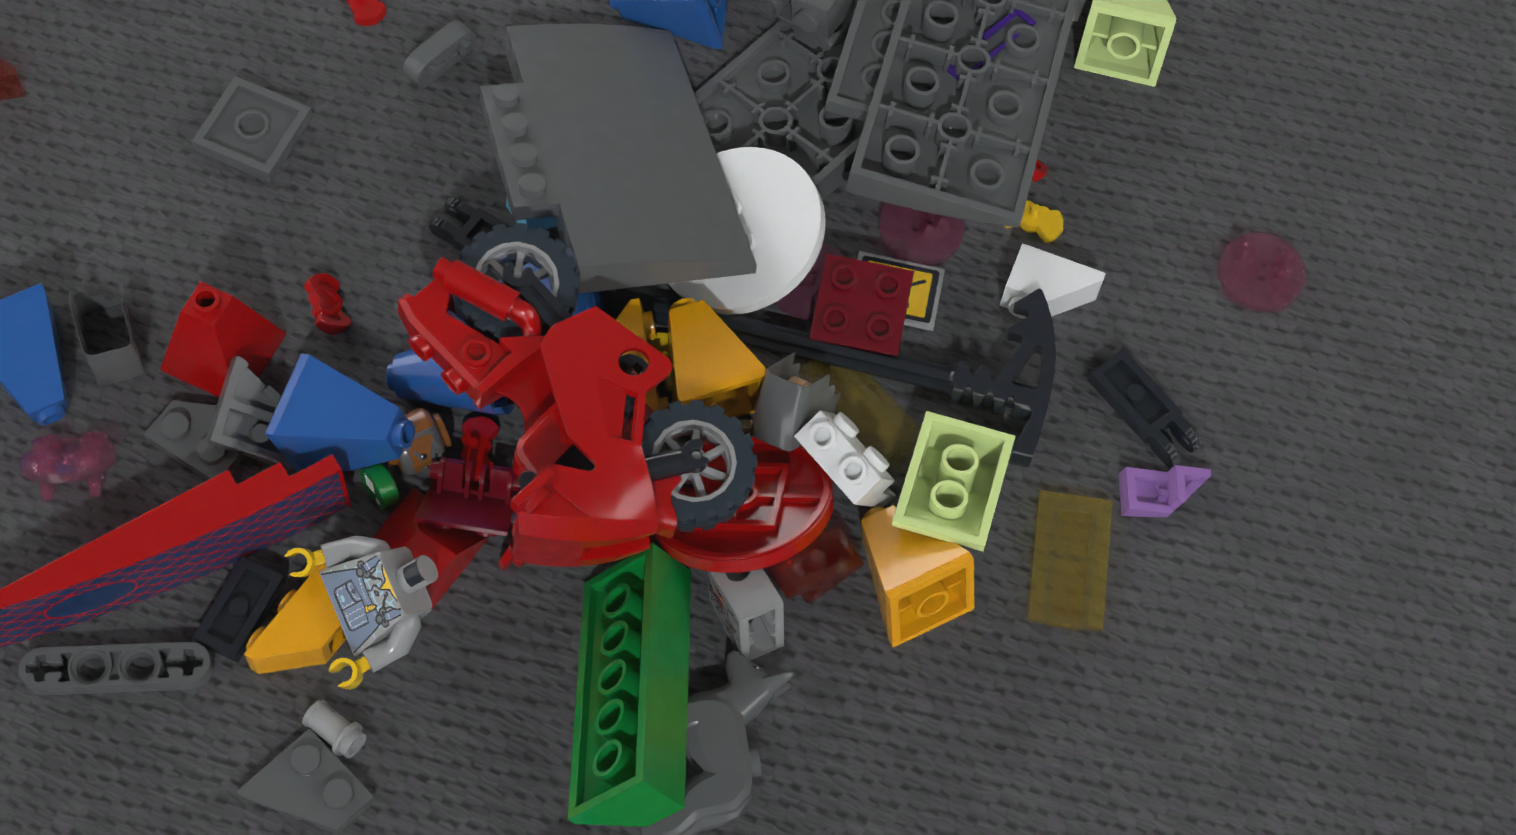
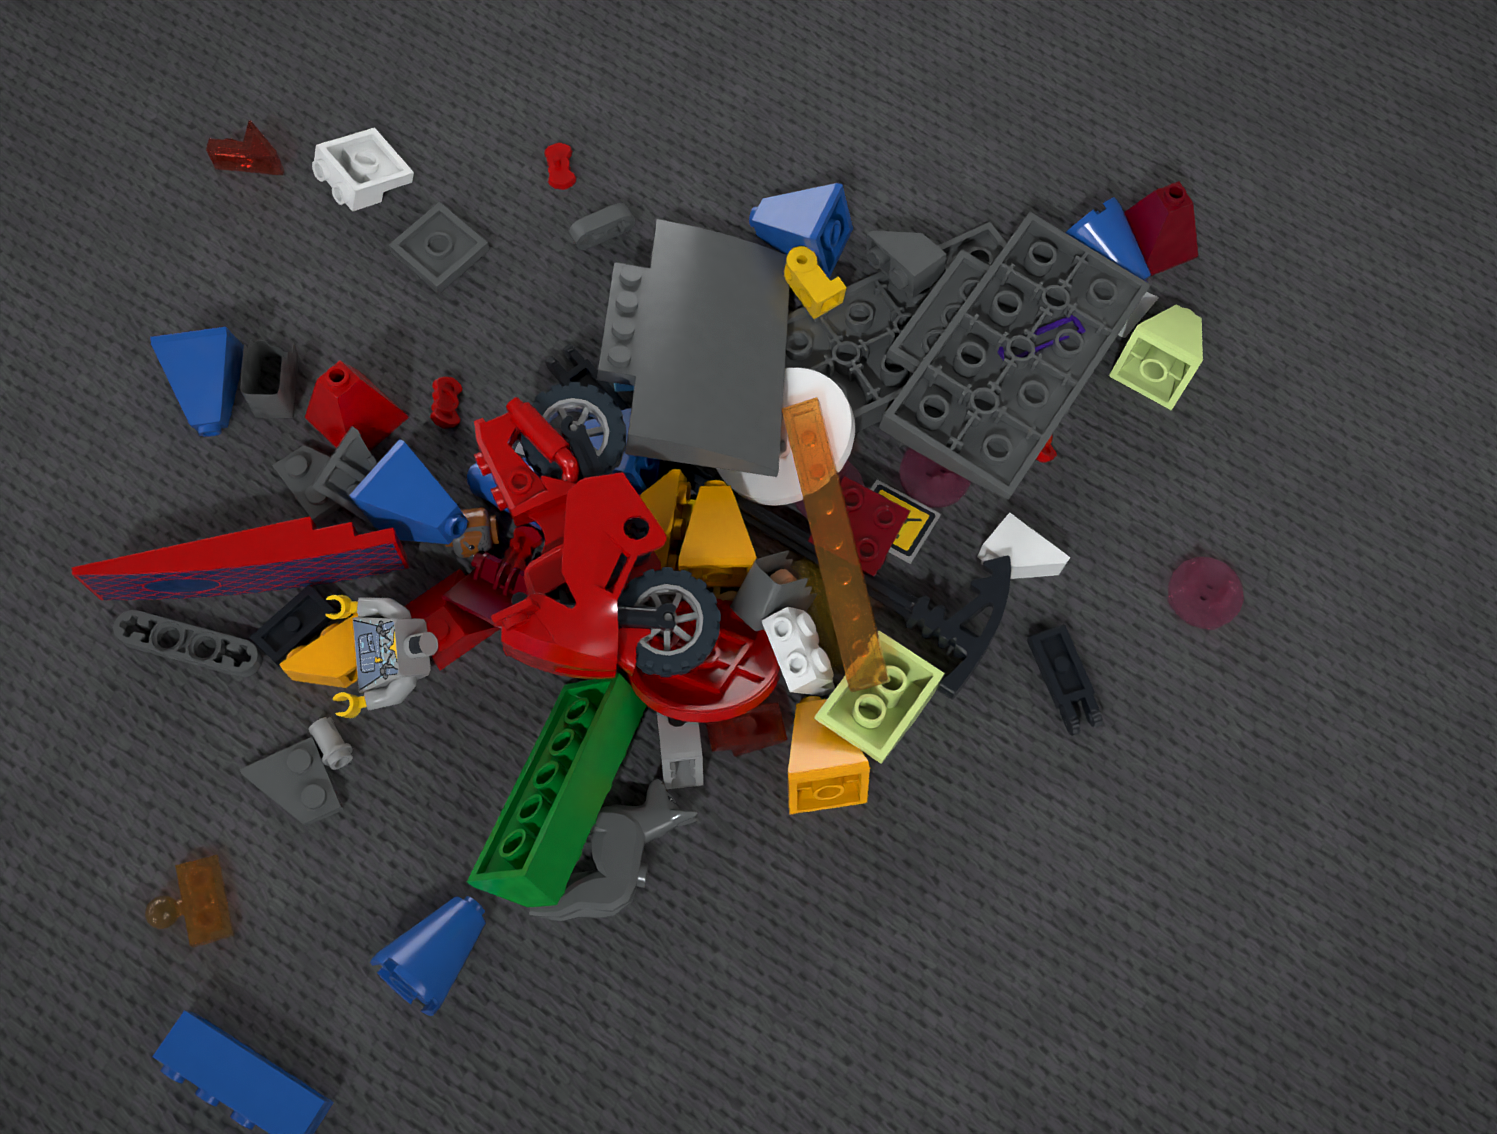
camera: 20 degrees right, 5 degrees up
(68, 461) = (207, 471): clear pink plate -> none
(123, 62) = (360, 168): none -> white plate
(380, 485) = (433, 560): green tile -> none
(710, 52) = (811, 283): none -> yellow leg
(847, 329) = (835, 546): none -> clear orange tile
(1044, 222) = (1035, 495): yellow piece -> none
(1070, 561) = (958, 788): clear yellow piece -> none
(1158, 492) = (1052, 752): medium lavender slope -> none

